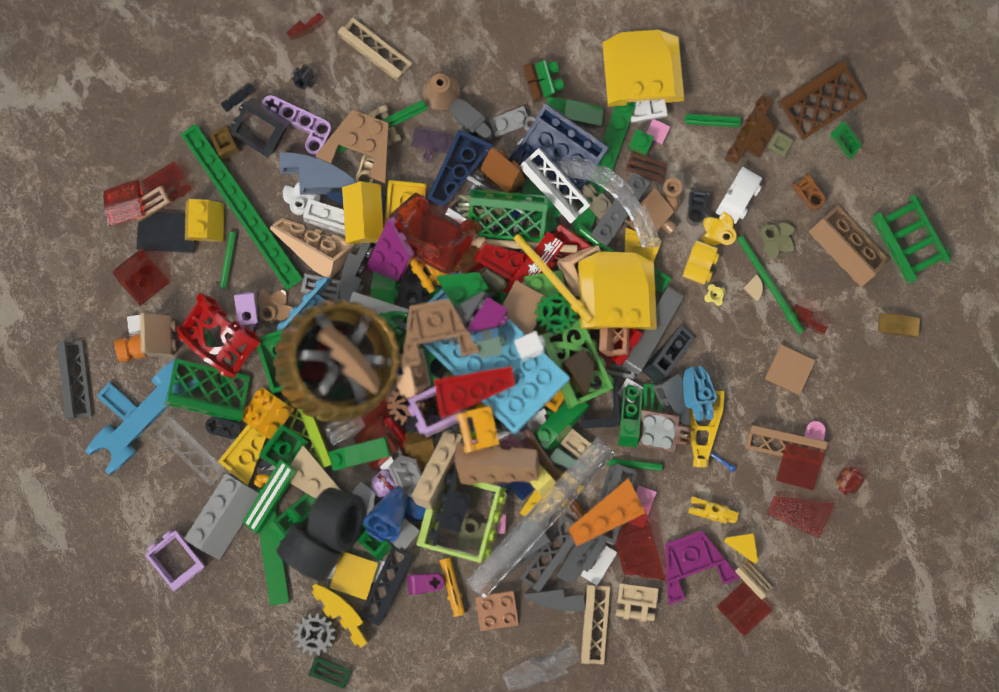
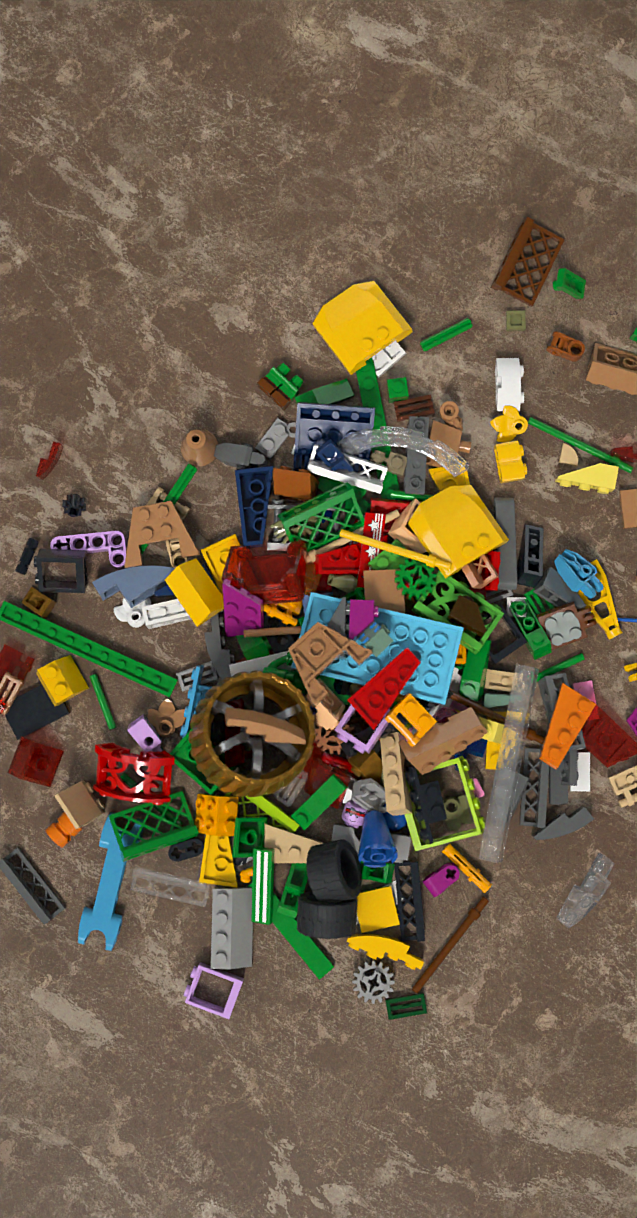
camera: 25 degrees left, 0 degrees up
(116, 401) = (79, 882): dark azure tile -> none
(134, 324) = (54, 806): white tile -> none
(319, 251) = (177, 647): light nougat wedge -> none
(341, 392) = (269, 756): green tile -> none
(369, 52) = (120, 450): tan fence -> none
(406, 285) = (272, 631): none -> medium nougat bar
(431, 141) = (217, 495): clear purple plate -> none
(433, 630) = (473, 914): none -> reddish brown bar
(462, 286) = (321, 604): green wing -> none
(497, 610) = (517, 865): nougat hinge -> none
(530, 346) = (412, 620): white brick -> none
(549, 168) = (333, 457): none -> dark blue slope
(587, 627) = (603, 830): tan fence -> none
(658, 130) = (405, 369): bright pink tile -> none
(661, 281) = (486, 496): green tile -> none
(697, 203) = (477, 411): black piece -> none
(718, 299) = (543, 481): light yellow plate -> none
(754, 133) = (488, 323): reddish brown bracket -> none
(765, 319) = (598, 477): none -> light yellow slope
(779, 241) = (564, 402): olive plate -> none

